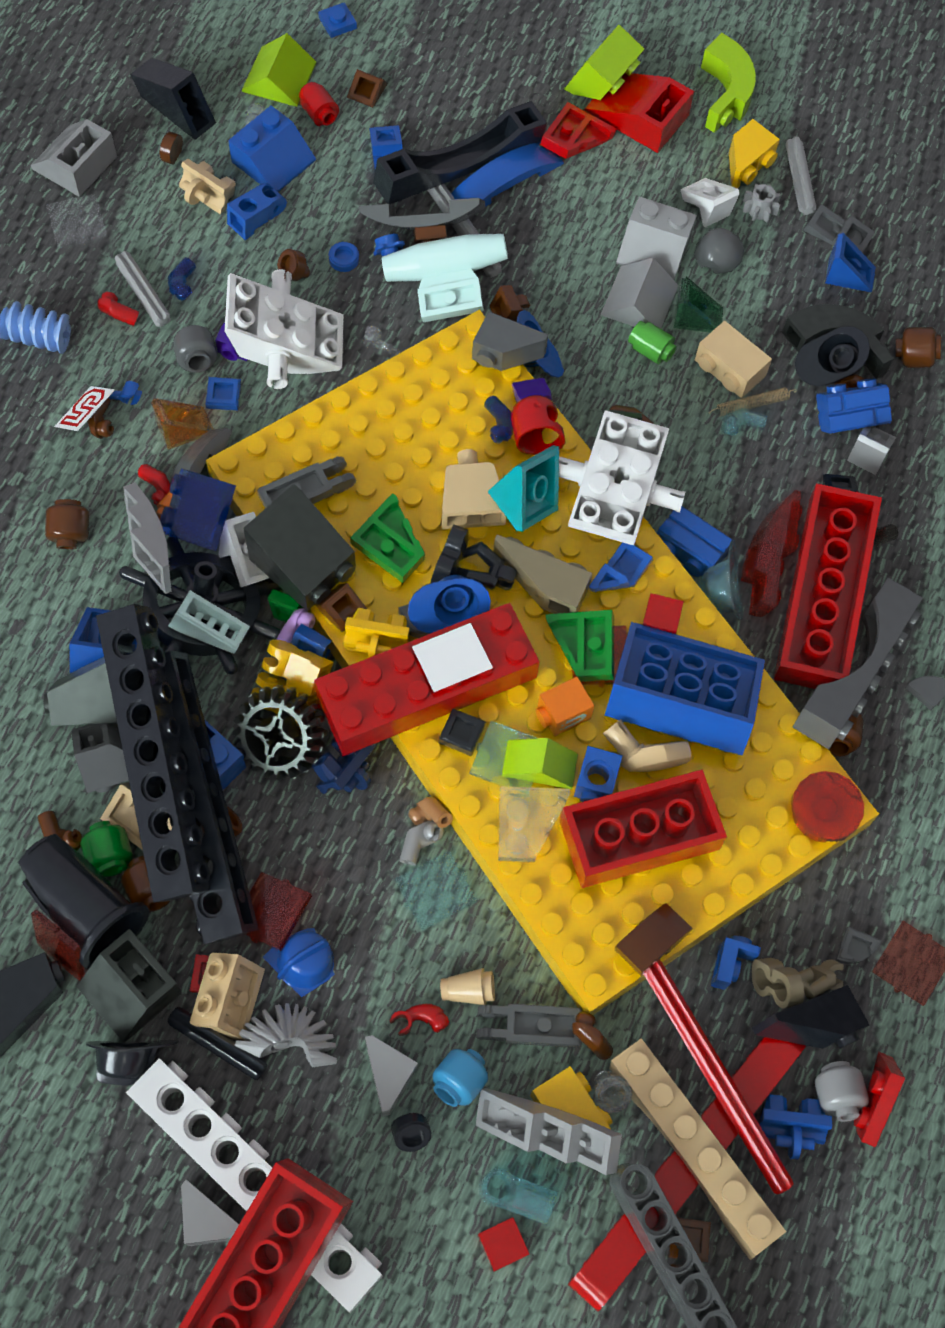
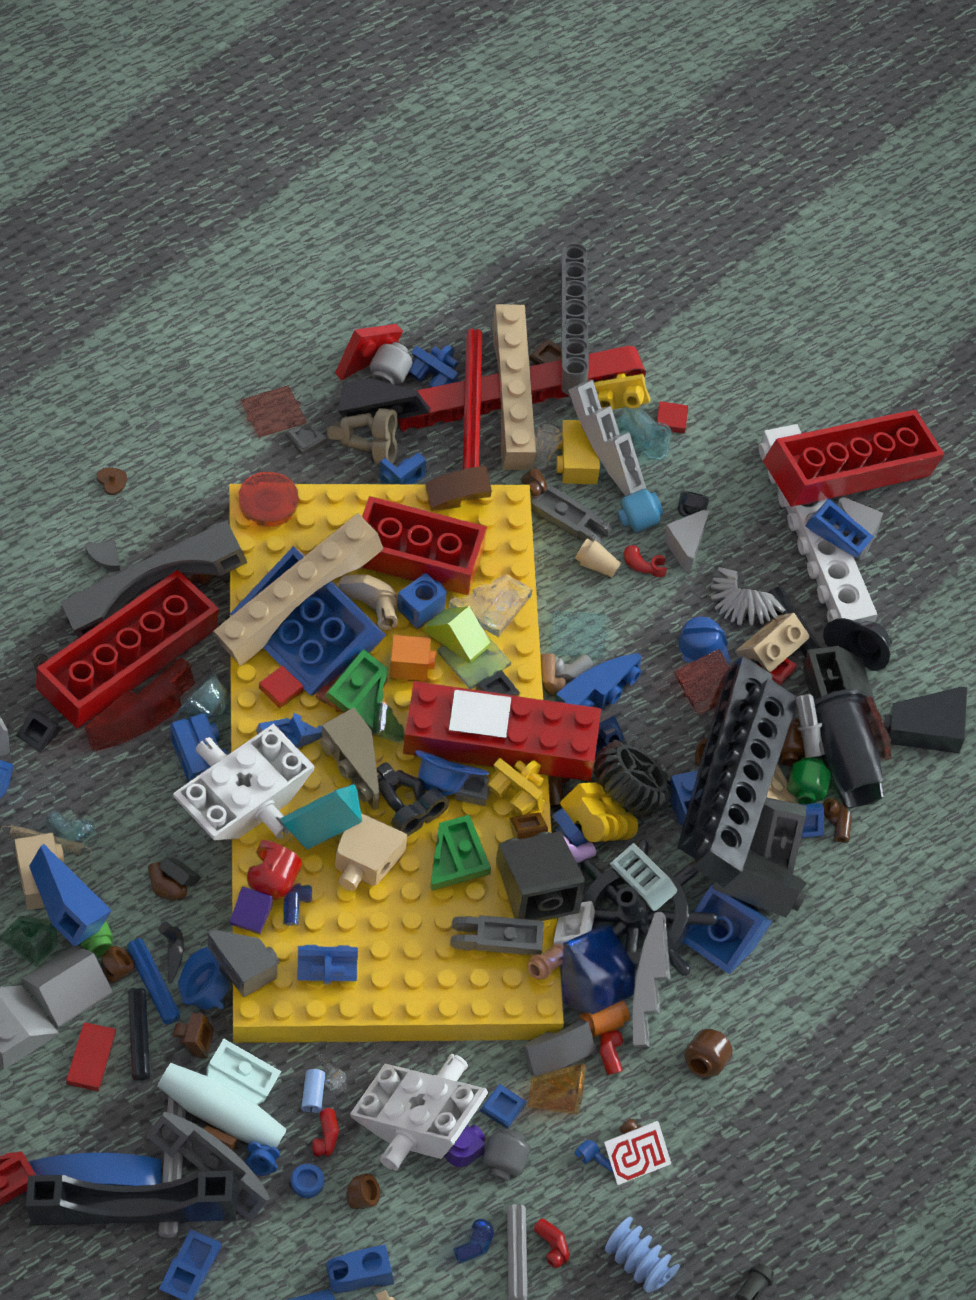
camera: 150 degrees left, 10 degrees down
(87, 807) = (814, 821): none -> blue tile
(127, 882) = (809, 726): none -> light grey axle
(247, 490) = (542, 965): none -> nougat pin
(253, 1178) = (836, 515): none -> blue slope
(351, 297) = (330, 1134): none -> red arm
(379, 827) = (602, 683): none -> blue slope
(385, 320) = (313, 1090): none -> light blue piece
(448, 375) = (327, 963): none -> blue hips
(540, 624) = (386, 724): none -> clear green tile
(554, 291) = (139, 1034): none -> black axle
(575, 1228) = (623, 392): none -> yellow hips
(576, 337) = (153, 981): none -> blue axle
(577, 256) = (91, 1056): none -> red tile
(578, 371) = (175, 949): none -> black bar
(613, 329) = (117, 962): none -> reddish brown tile
(680, 315) = (68, 901): none -> blue slope
(713, 691) = (338, 554): none -> tan arch

